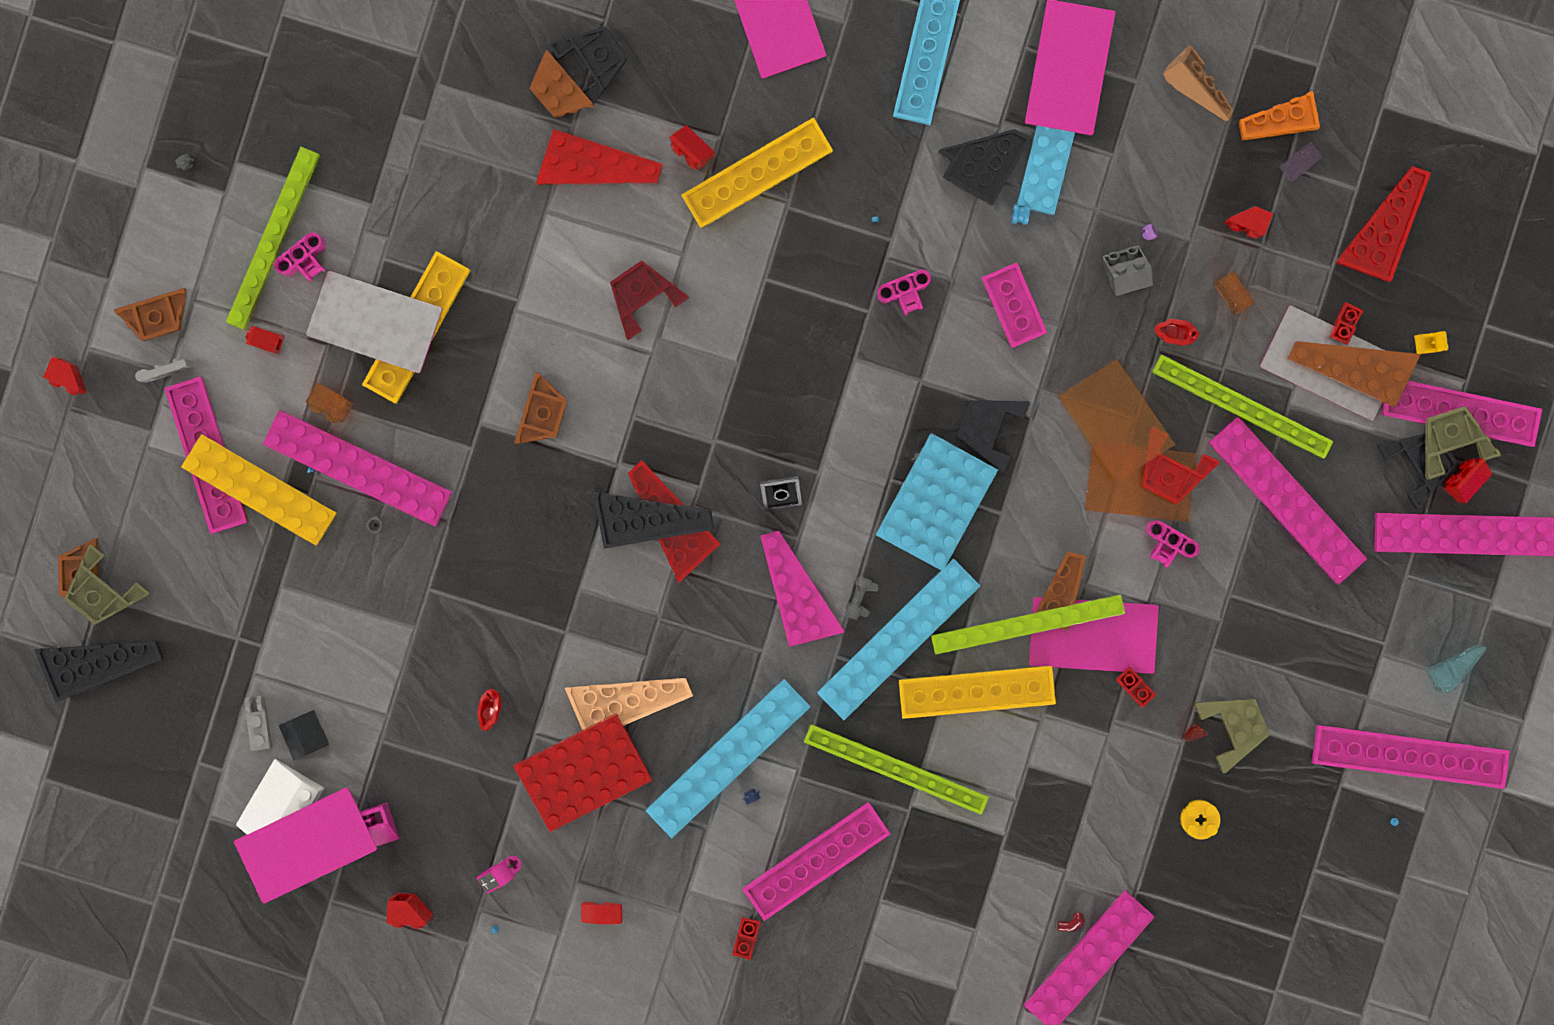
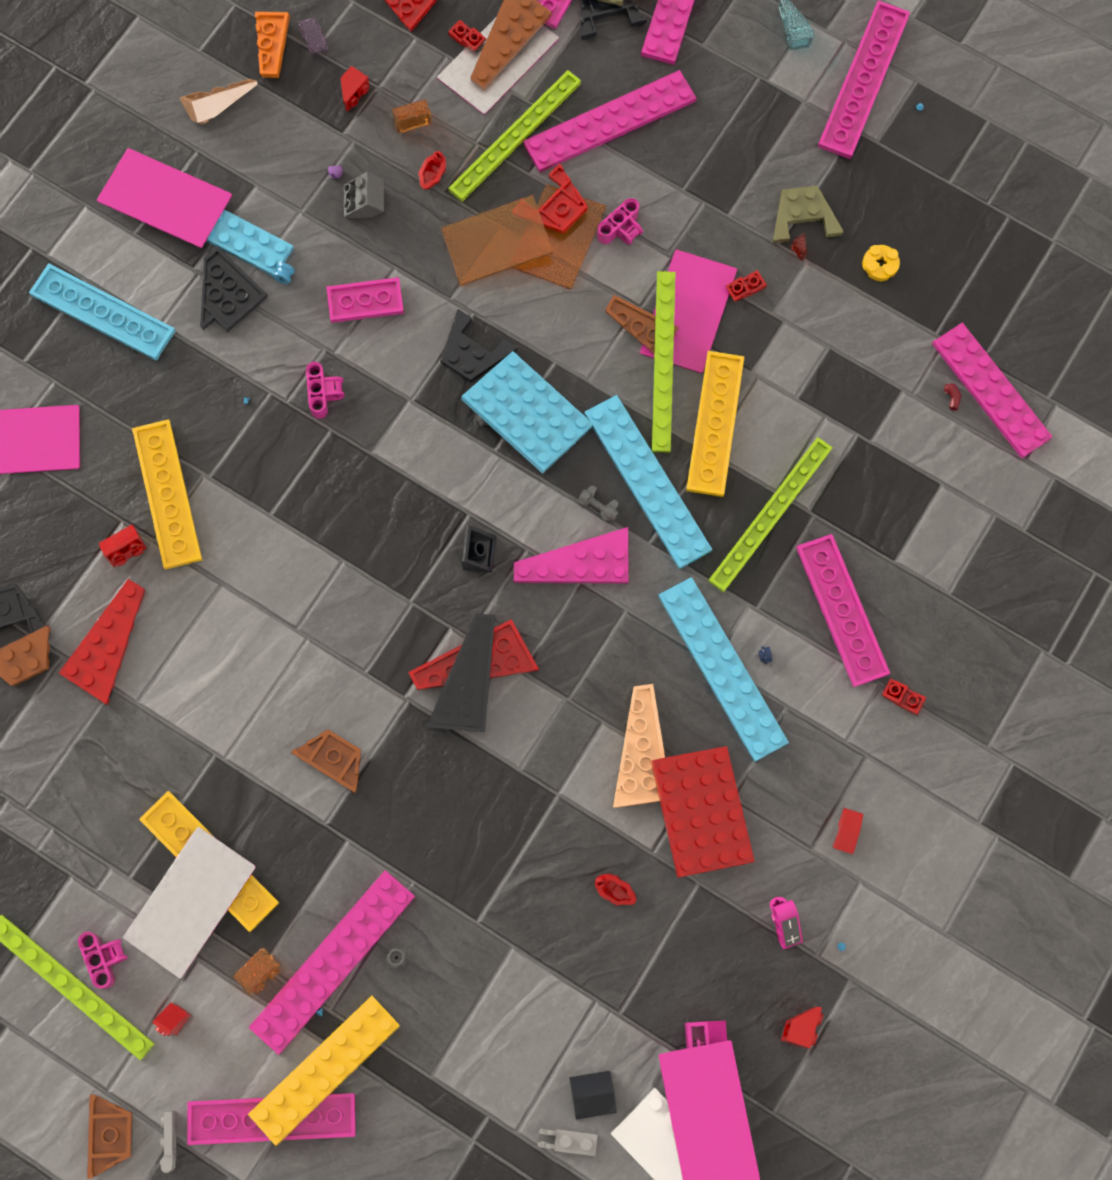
camera: 75 degrees left, 15 degrees down
(637, 288) = (240, 634): dark red wing -> none

